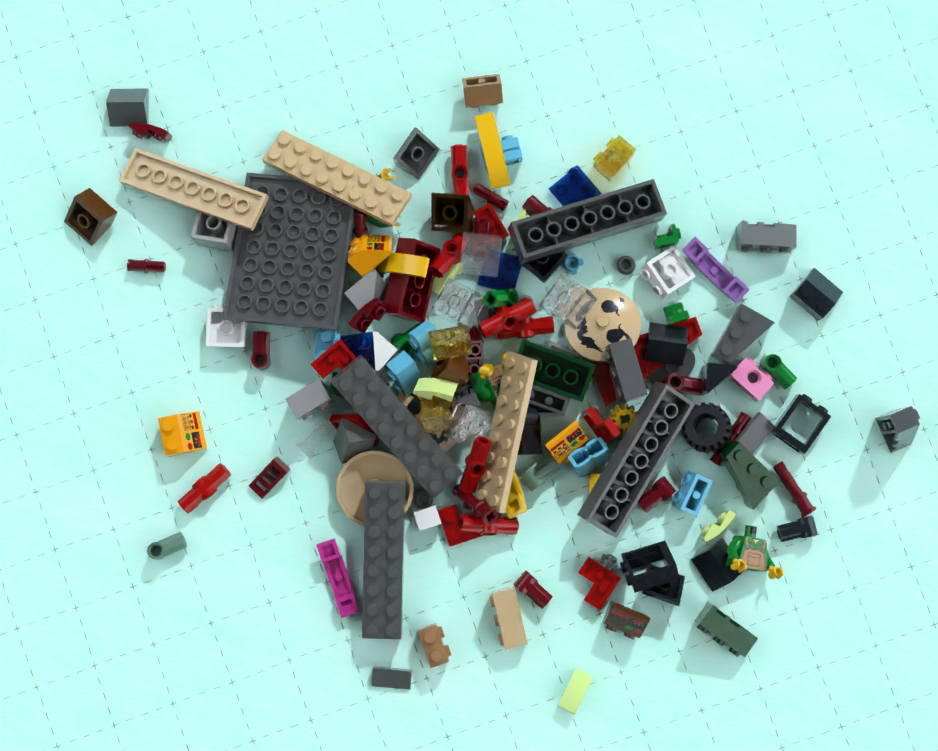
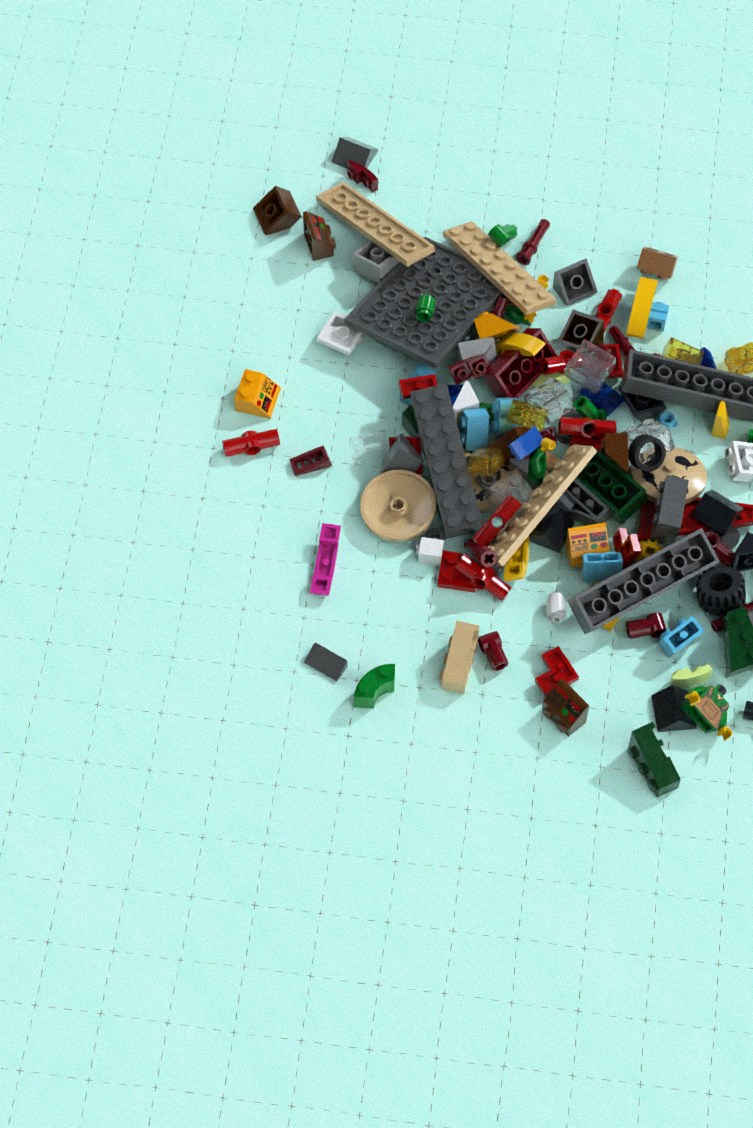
camera: 20 degrees right, 25 degrees down
(143, 225) = (318, 236): none -> reddish brown slope
(146, 266) = (301, 265): dark red axle -> none
(168, 546) = (191, 470): sand green piece -> none
(261, 347) = (360, 365): dark red piece -> none
(293, 269) = (425, 307): none -> green brick
(310, 398) = (382, 412): light grey slope -> none
(321, 134) = (503, 234): none -> green piece
(352, 132) = (530, 247): none -> dark red pin
(383, 559) = (374, 559): dark grey brick -> none
(433, 386) = (491, 441): yellowish green slope -> none
(433, 645) = (379, 648): medium nougat brick -> none
(446, 682) = (373, 685): none -> green brick
(466, 379) = (526, 443): none -> blue slope
(537, 475) = (545, 564): sand green piece -> none
(547, 335) = (615, 448): none -> reddish brown slope
(549, 190) = (683, 352): none -> clear yellow brick
(567, 517) = (556, 607): none -> white brick
(568, 323) = (658, 457): none -> black tyre
(575, 691) = (484, 749): yellowish green slope -> none
(609, 561) = (575, 660): dark grey plate -> none
(624, 243) = (721, 422): none -> yellow slope
(630, 261) = (714, 438): dark grey plate -> none
(645, 556) = (609, 673): black window -> none
(667, 592) = (612, 702): black slope -> none
(675, 313) = (739, 495): green bracket -> none

